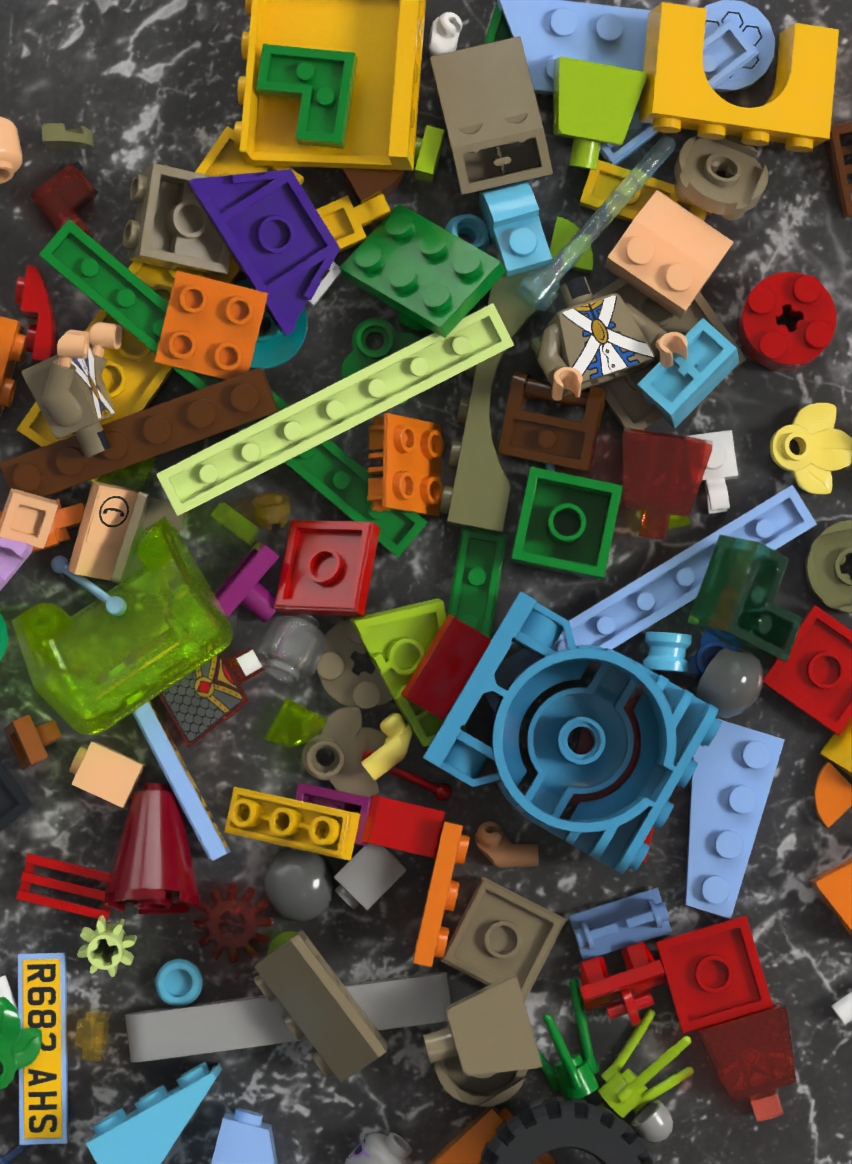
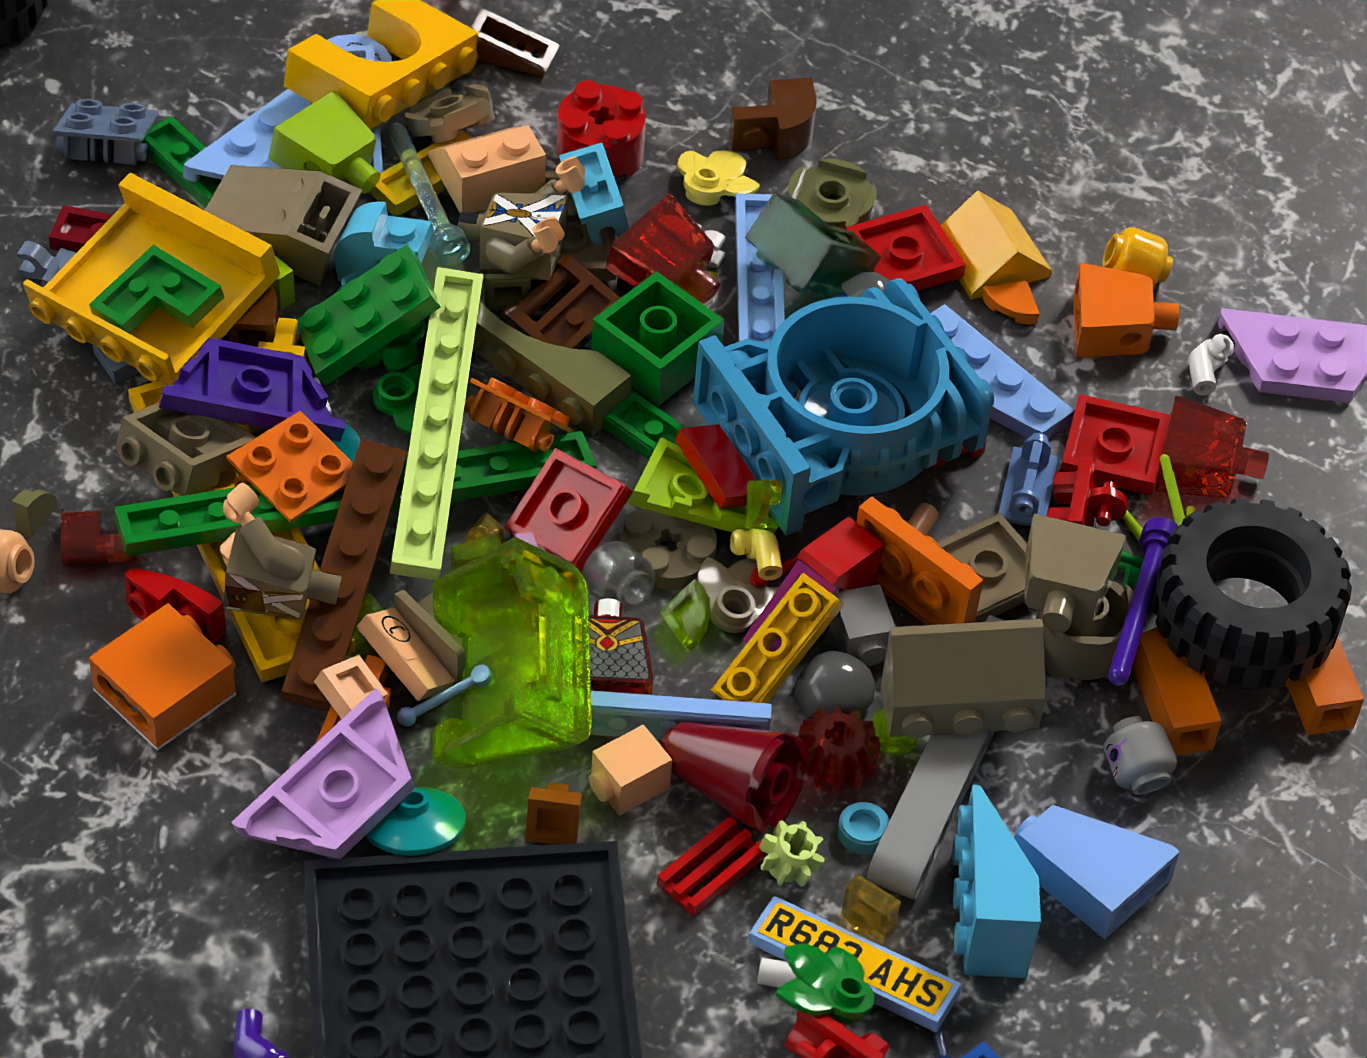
camera: 60 degrees left, 35 degrees down
(421, 728) = (760, 497): none -> clear neon green tile
(593, 1081) = (1152, 543): none -> dark purple piece

